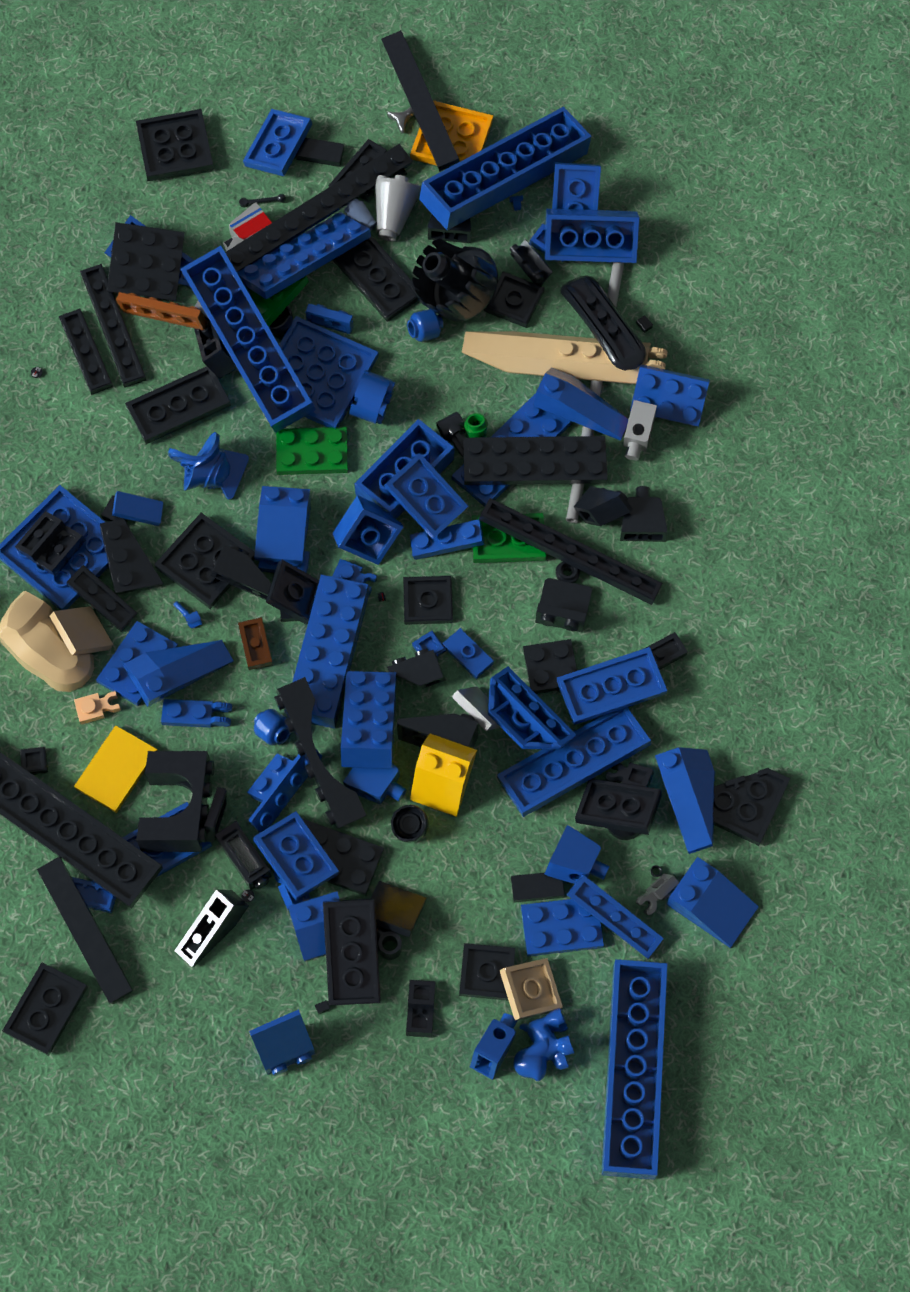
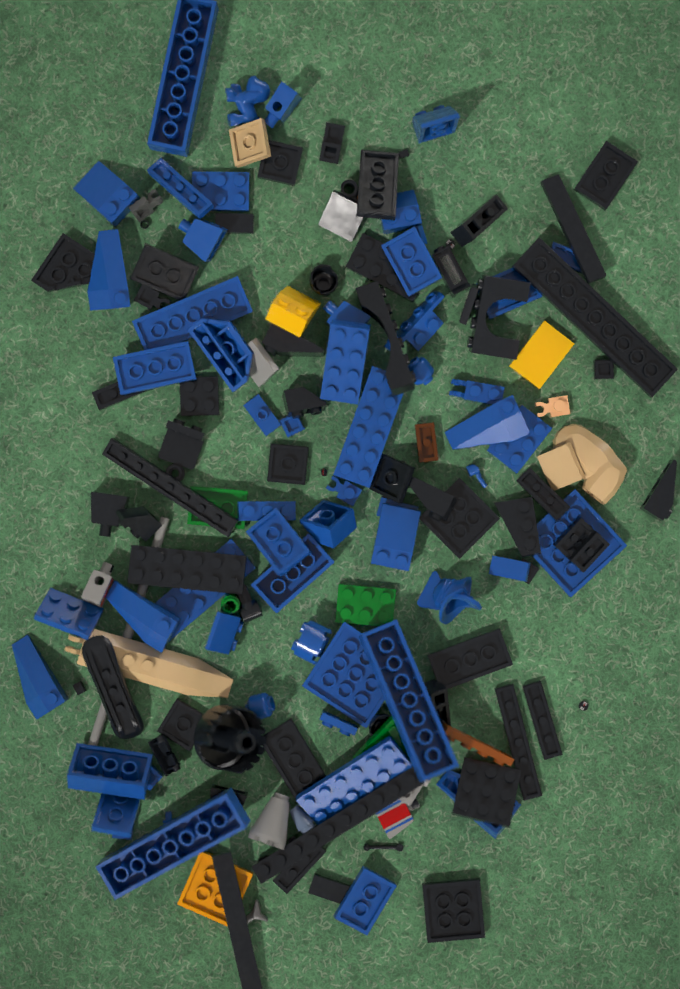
camera: 170 degrees left, 20 degrees up
(479, 393) = (224, 632): none -> blue slope
(693, 323) = (38, 682): none -> blue wedge

